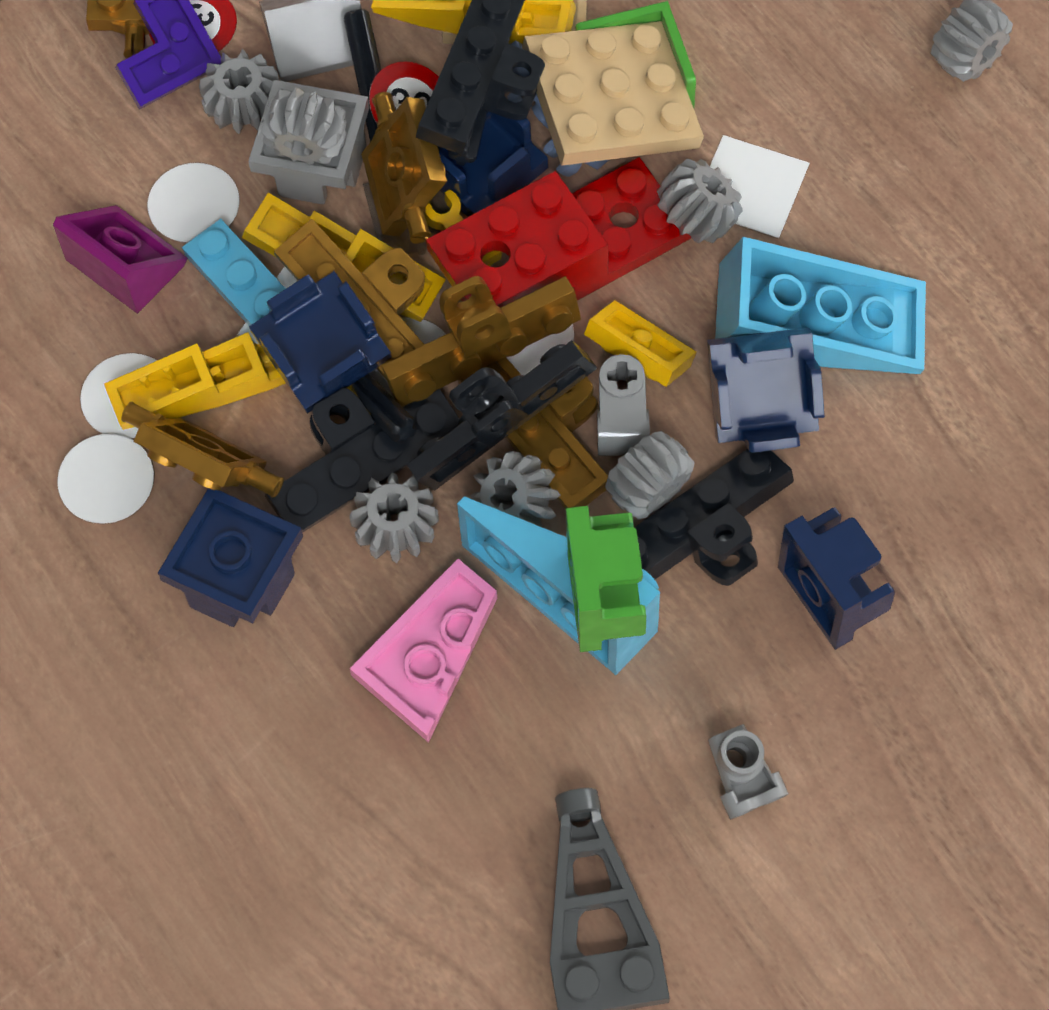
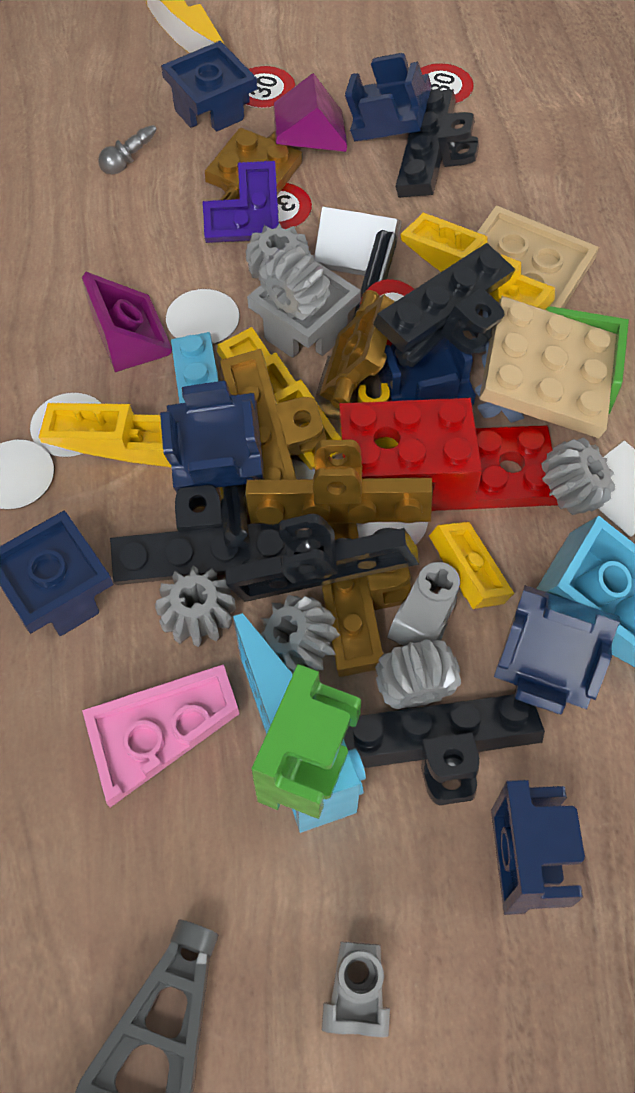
camera: 25 degrees right, 5 degrees down
(208, 456) = (77, 482): pearl gold plate -> none

